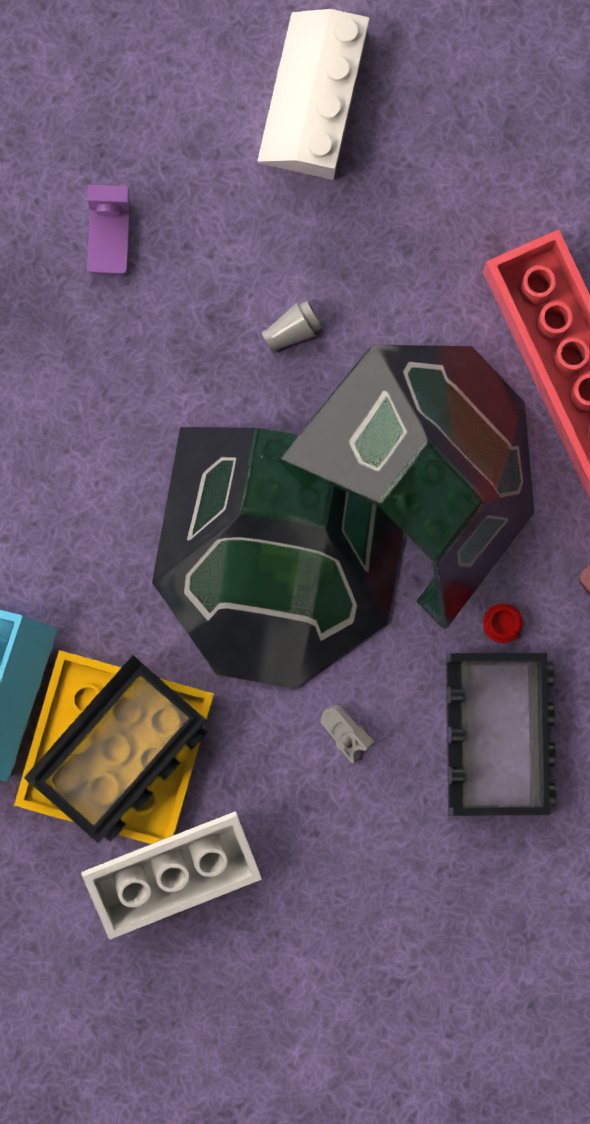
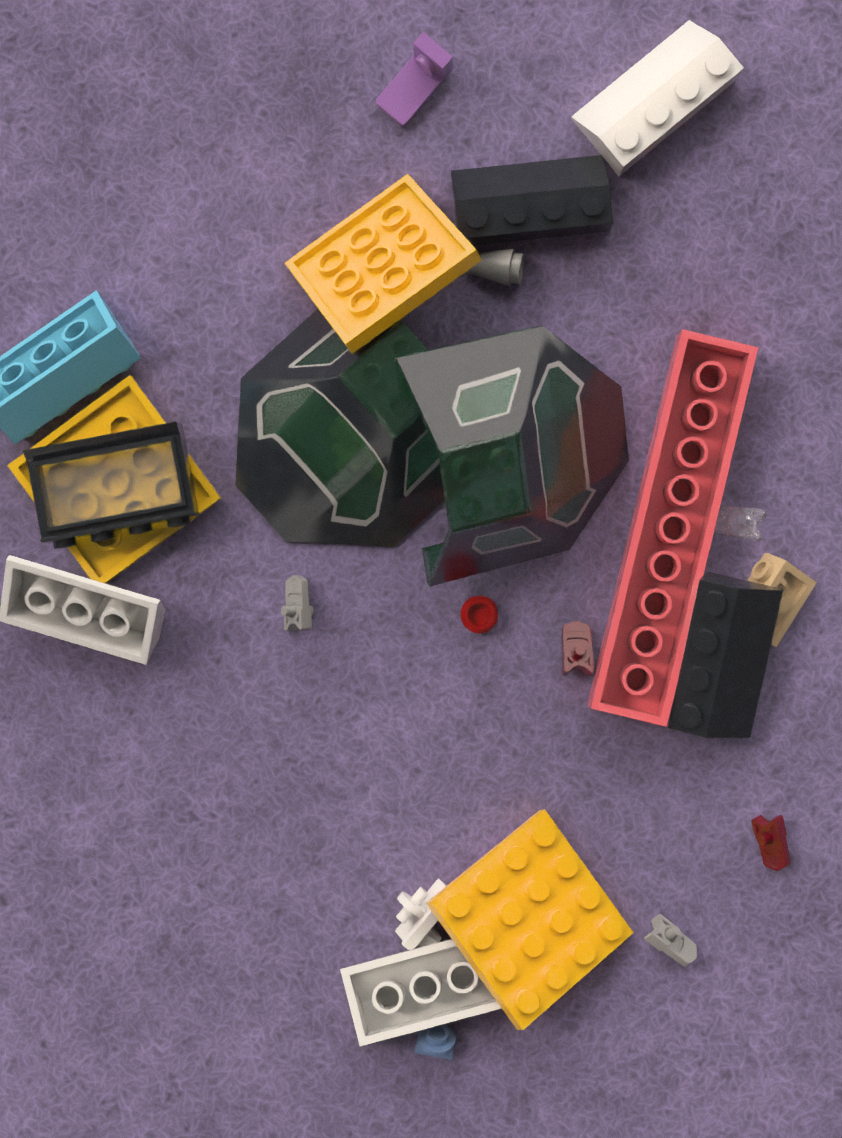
camera: 45 degrees right, 5 degrees up
(200, 395) = (382, 262): none -> yellow plate
(278, 253) = (532, 200): none -> black slope
(499, 734) = (409, 696): clear window -> none

